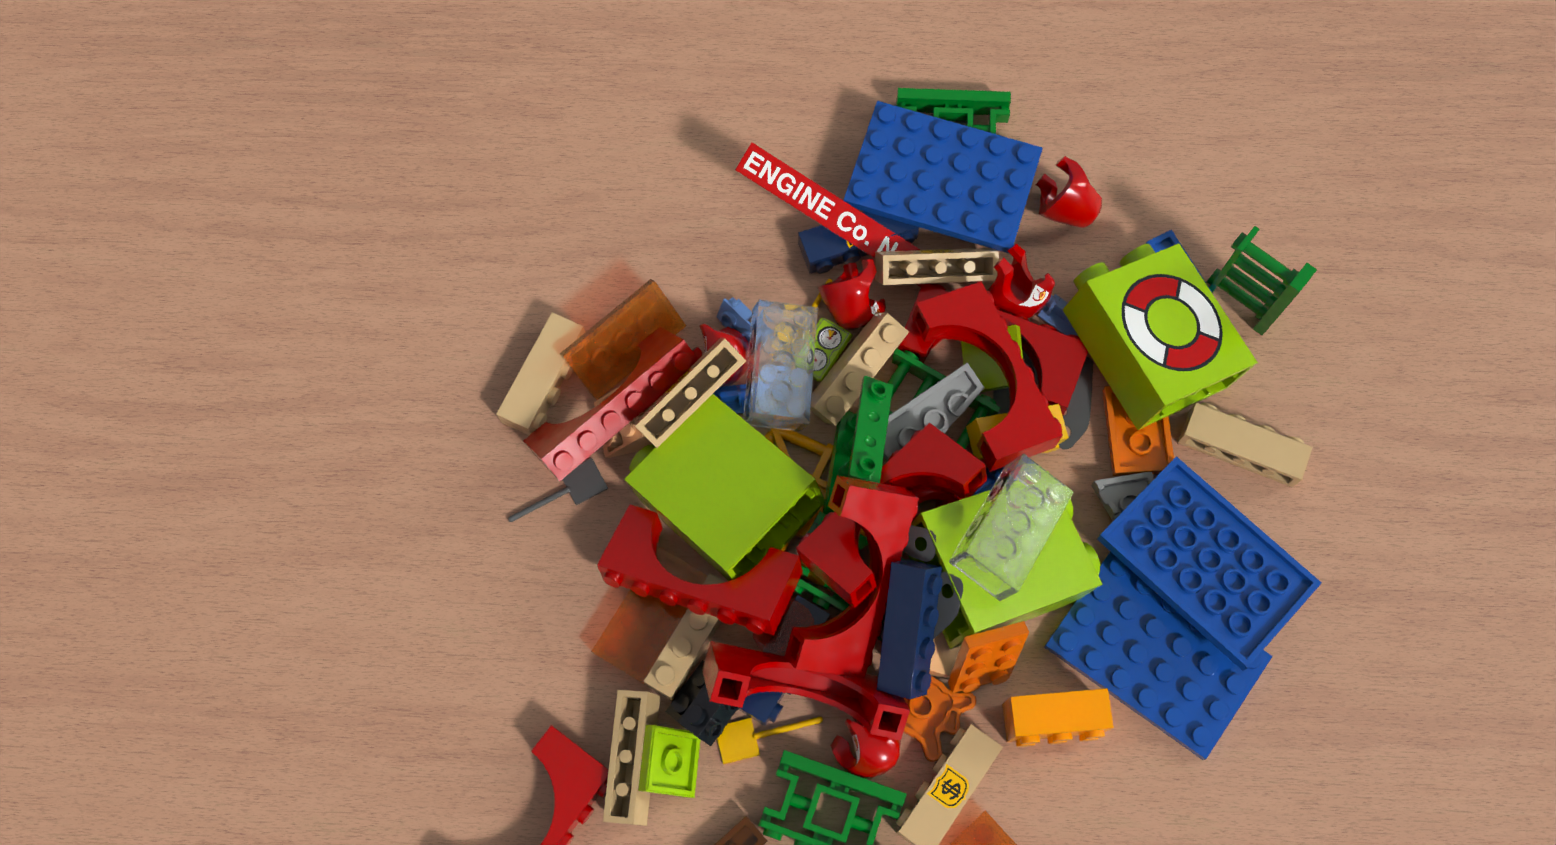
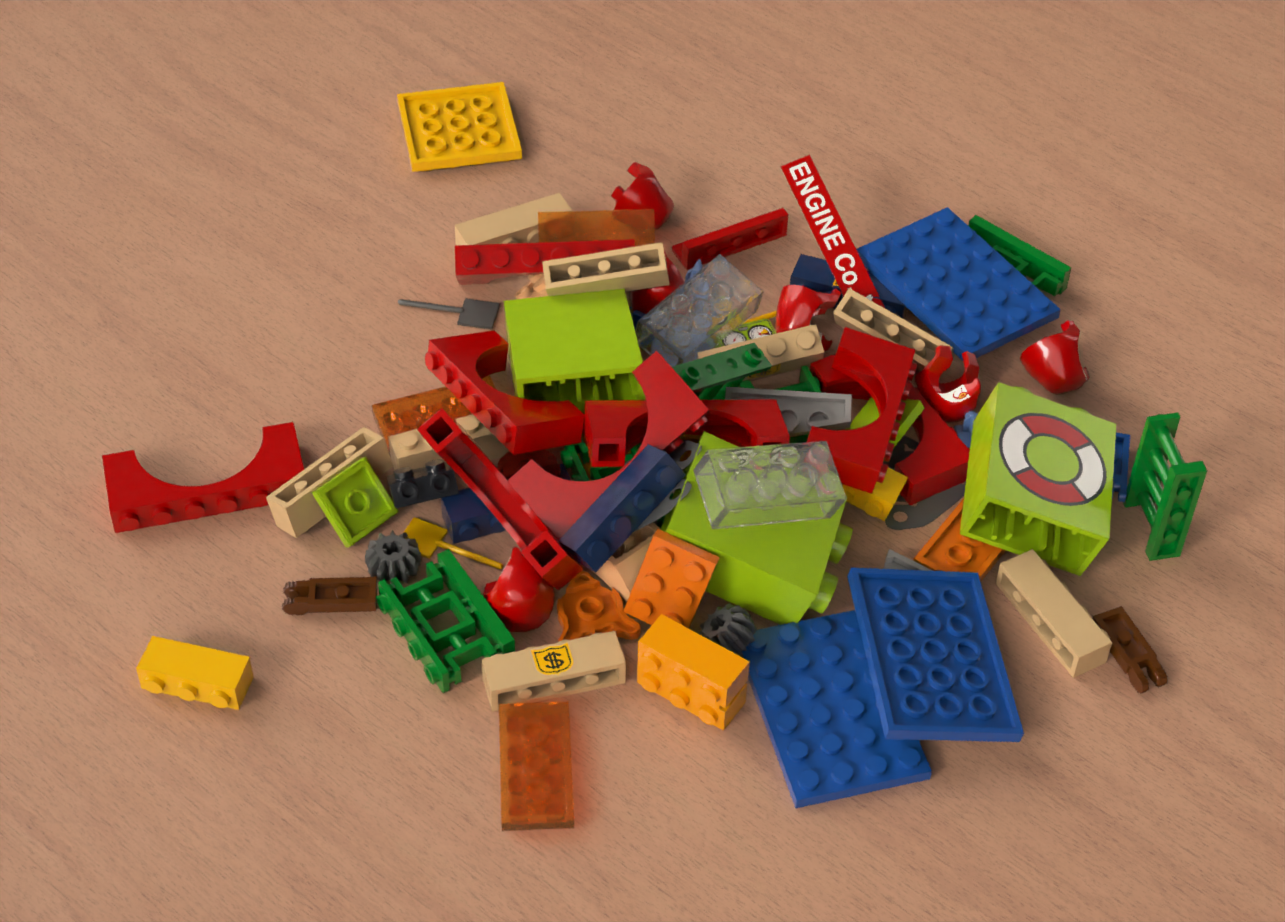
camera: 35 degrees right, 25 degrees down
(393, 293) = (458, 126): none -> yellow plate
(631, 268) = (644, 193): none -> red piece
(717, 248) = (732, 238): none -> red panel
(751, 790) = (393, 557): none -> dark grey gear
(1046, 667) = (729, 628): none -> dark grey gear
(1315, 433) = (1131, 649): none -> reddish brown hinge

